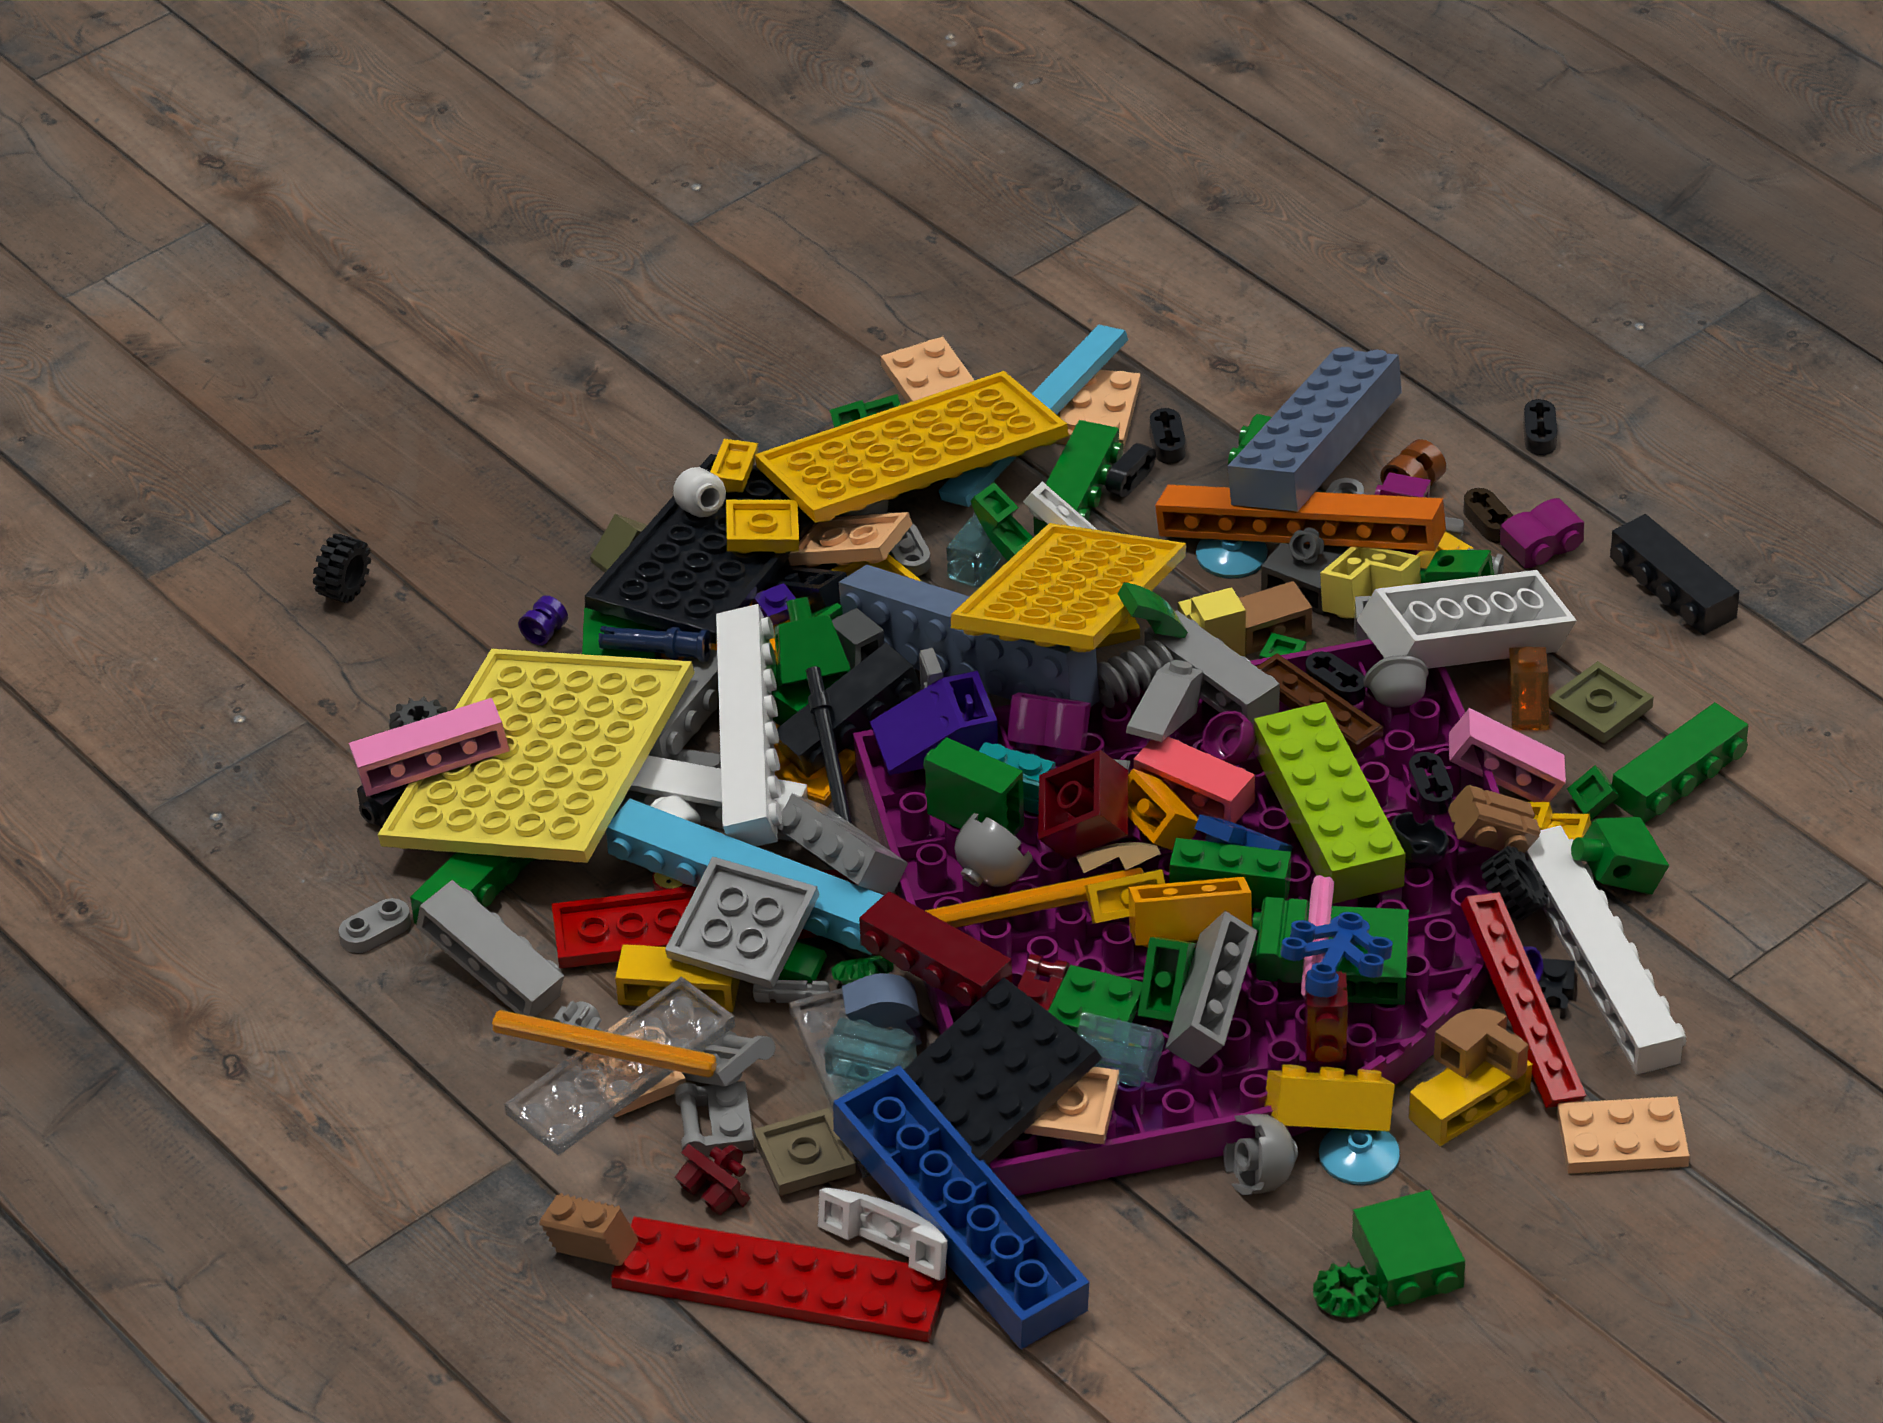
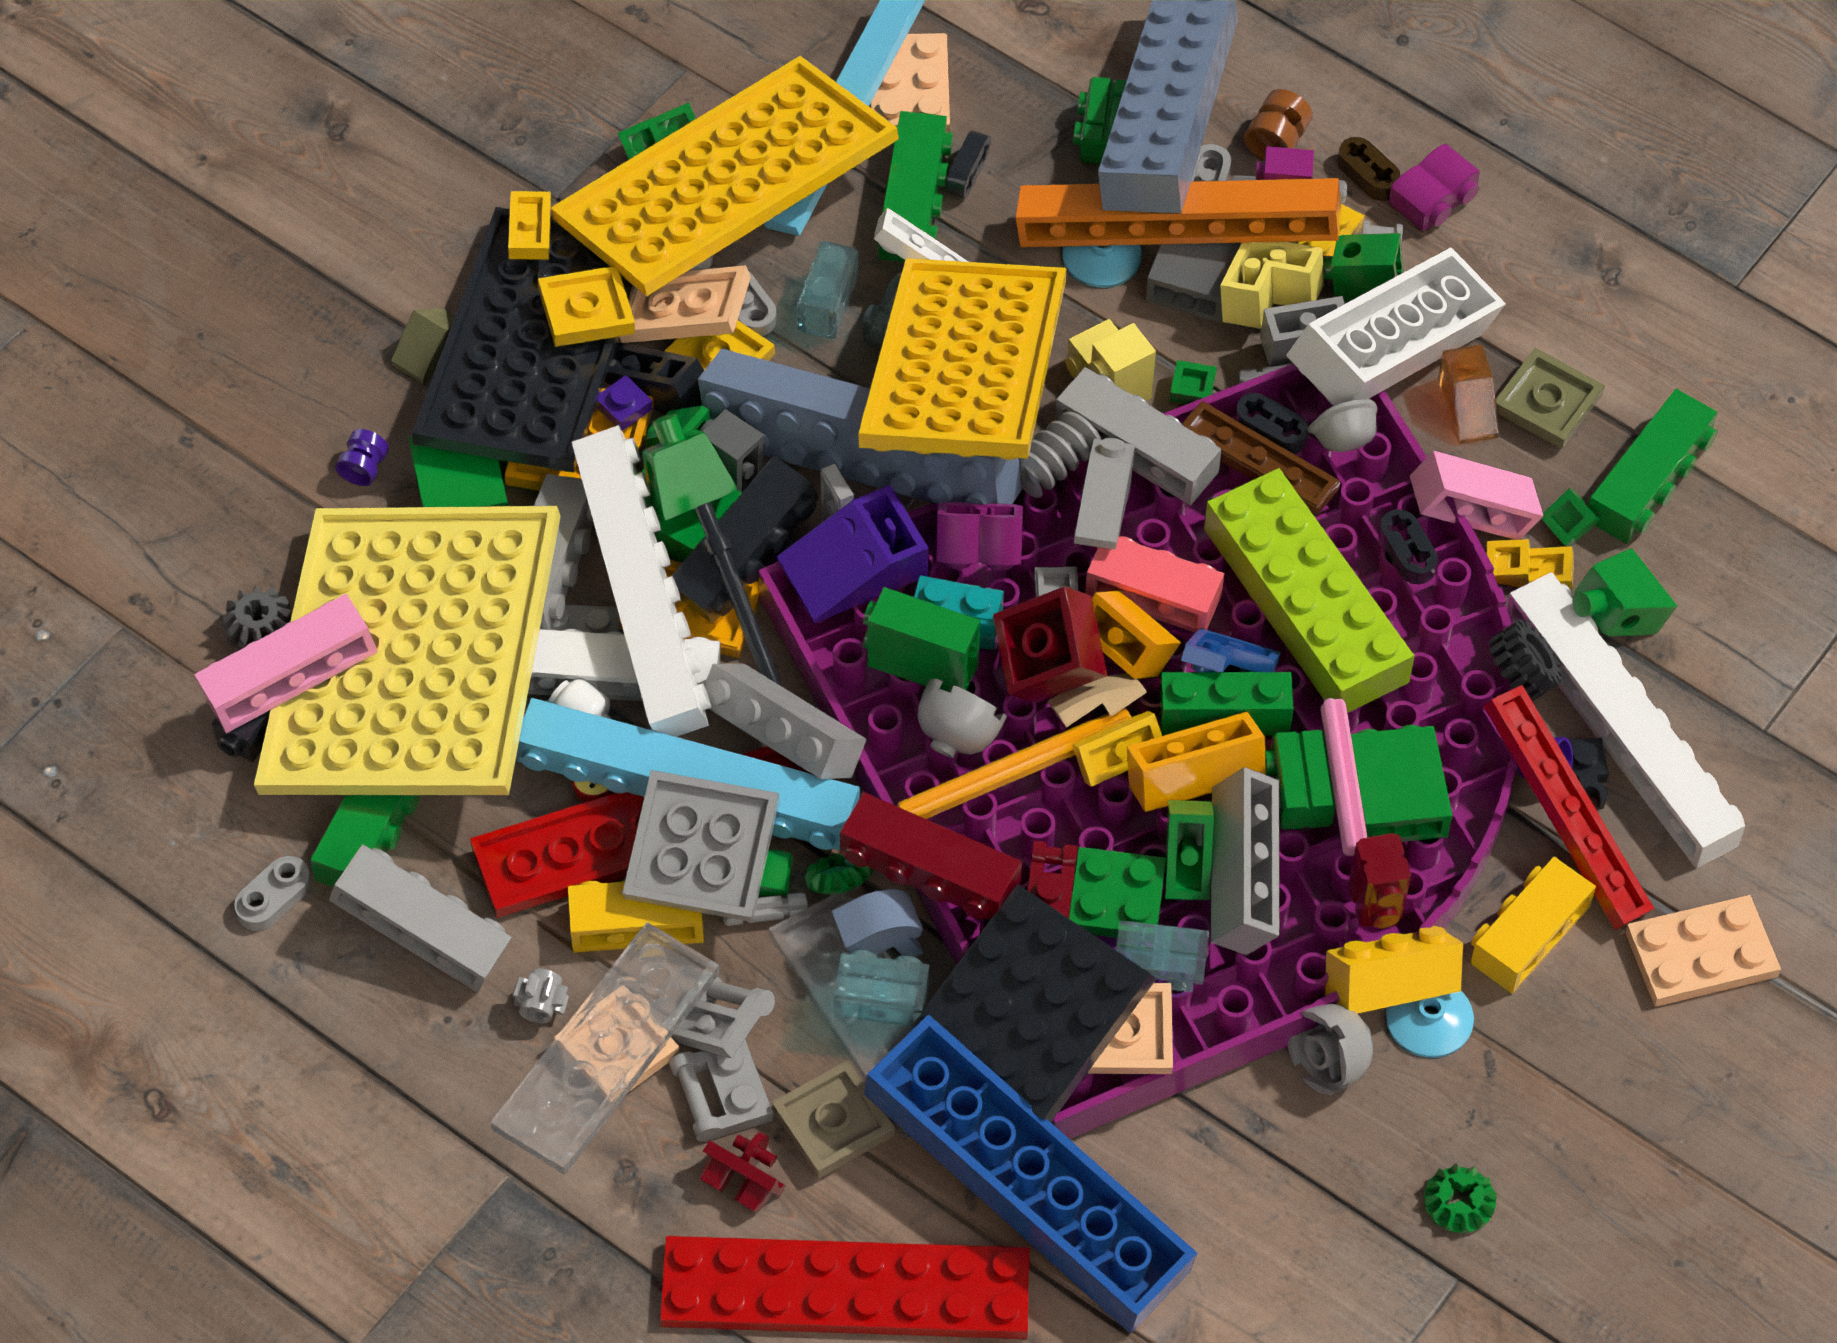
camera: 15 degrees left, 15 degrees up
(341, 568) = (115, 424): black tyre -> none
(589, 1229) = (625, 1270): medium nougat brick -> none
(604, 1043) = (585, 1029): light orange axle -> none
(672, 642) = (526, 480): dark blue pin -> none
(699, 492) = (504, 271): white head -> none
(887, 1224) = (956, 1205): white slope -> none
(925, 369) = (709, 62): light nougat plate -> none
(996, 517) = (856, 273): green slope -> none
(1152, 607) = (1067, 380): green slope -> none
(1162, 436) = (1002, 109): black beam -> none
(1229, 737) = (1180, 525): magenta hair -> none
(1276, 611) = (1176, 333): medium nougat brick -> none
(1298, 541) = (1187, 255): dark grey plate -> none
(1347, 932) = (1381, 770): blue plant -> none
(1408, 1248) = (1517, 1138): green brick -> none
(1421, 842) = (1420, 626): black hair -> none
(1480, 1037) = (1539, 867): medium nougat brick -> none
(1493, 820) = (1489, 588): medium nougat brick -> none
(1546, 426) = (1389, 46): black beam -> none
(1674, 574) = (1587, 221): black brick -> none

